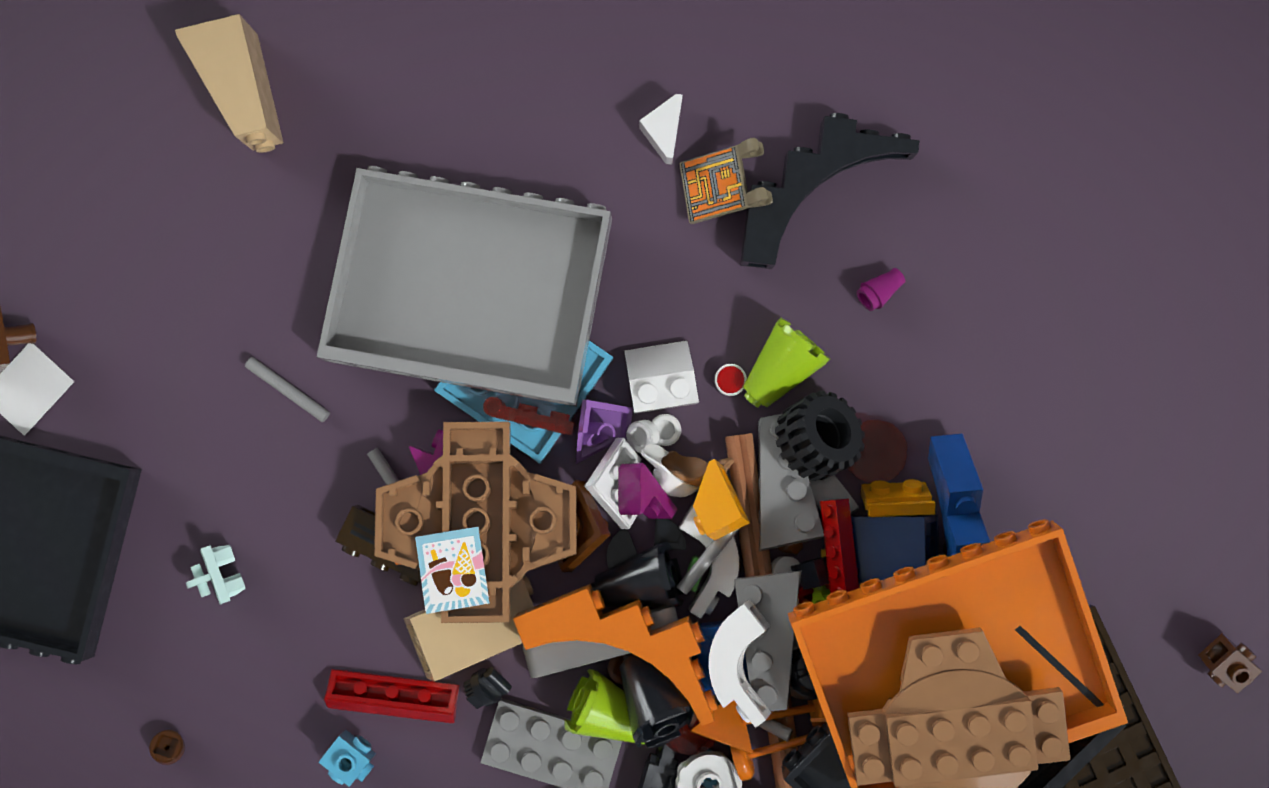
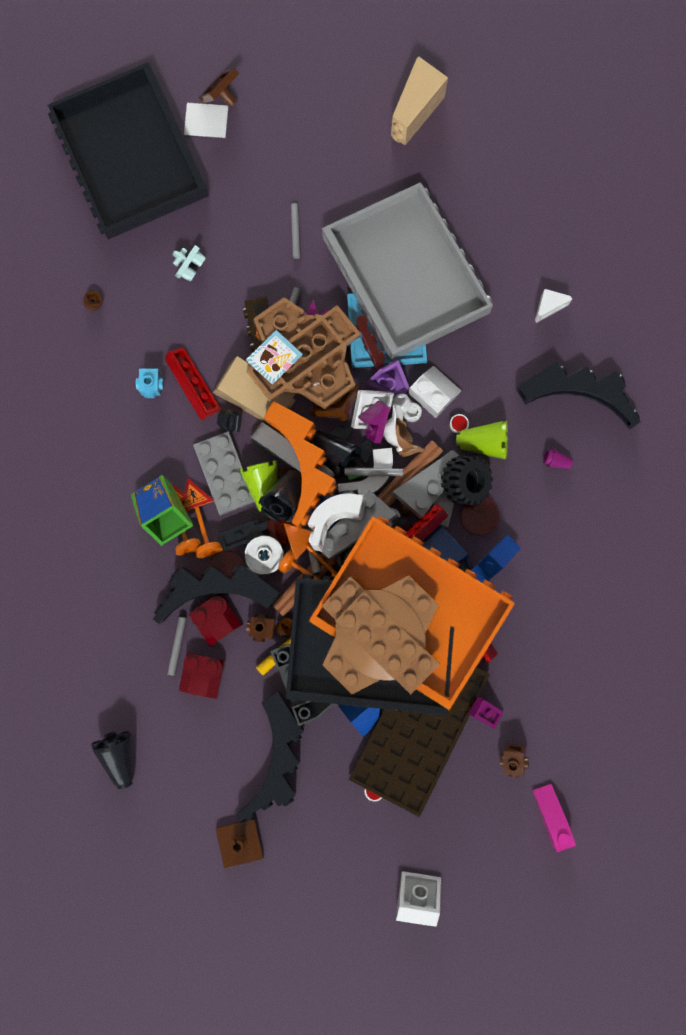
camera: 55 degrees right, 5 degrees down
(717, 504) = (398, 455): light orange slope -> none
(718, 185) = (545, 346): flag -> none
(897, 499) = (461, 534): light orange plate -> none
(1139, 651) = (486, 712): none -> magenta slope

